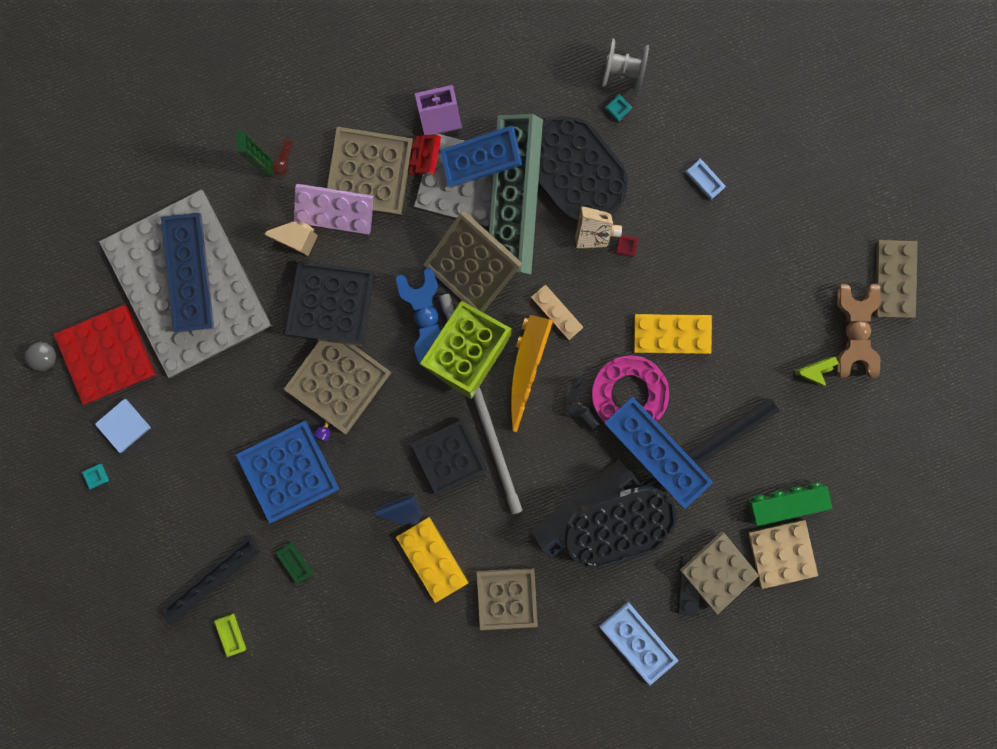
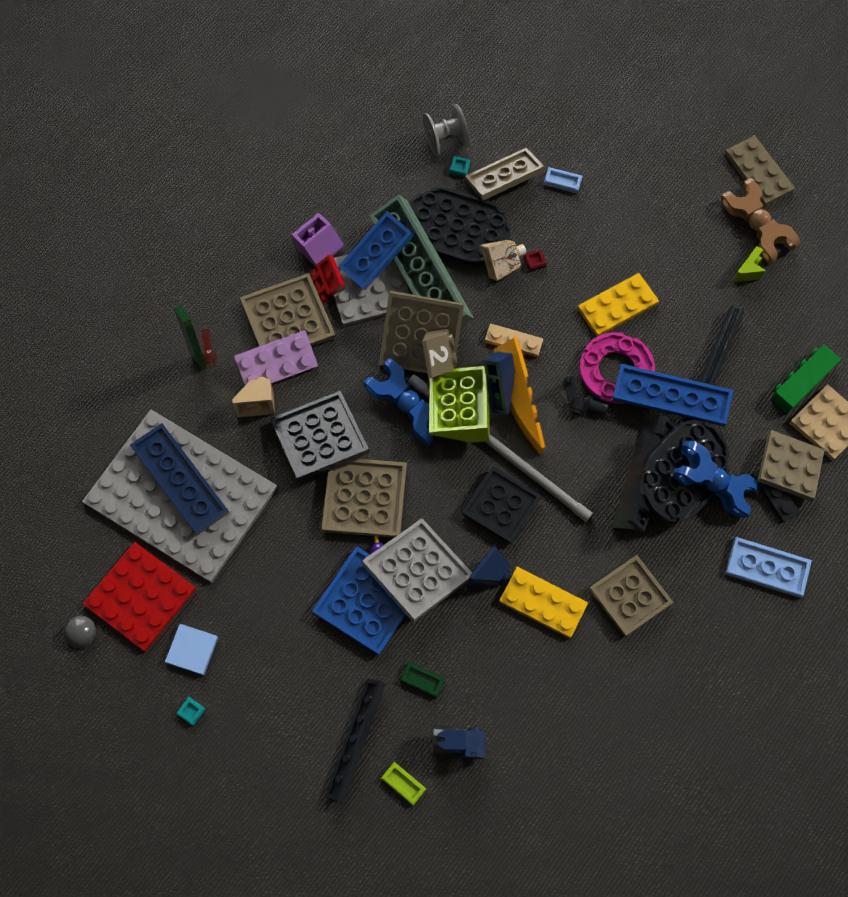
camera: 35 degrees left, 20 degrees down
(287, 635) = (468, 742): none -> dark blue piece
(341, 473) = (417, 569): none -> light grey plate
(473, 293) = (438, 352): none -> dark tan slope
(514, 349) = (500, 378): none -> dark blue slope
(633, 540) = (705, 471): none -> blue piece
(653, 142) = (504, 173): none -> dark tan plate

